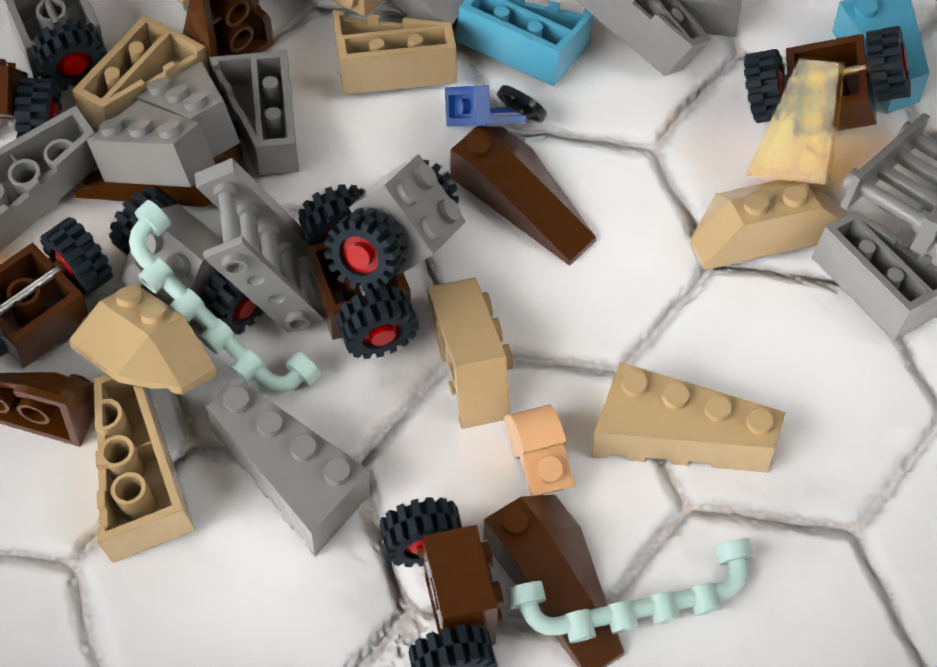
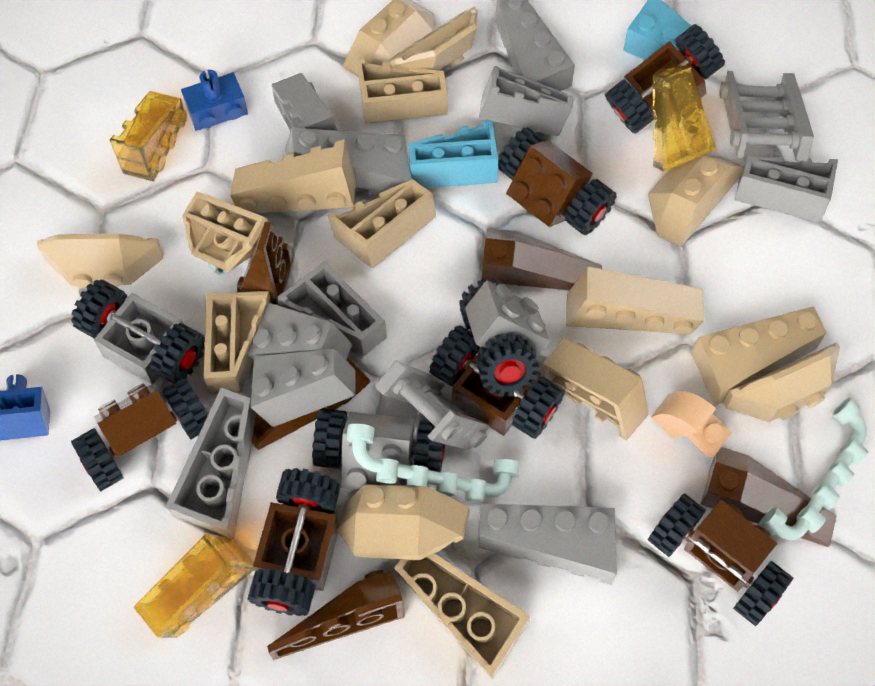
camera: 35 degrees left, 5 degrees up
(472, 107) = (475, 224): blue piece -> none
(586, 290) = (633, 303): none -> tan wedge
(604, 118) = (553, 183): none -> reddish brown brick
(689, 481) = (787, 388): none -> tan wedge

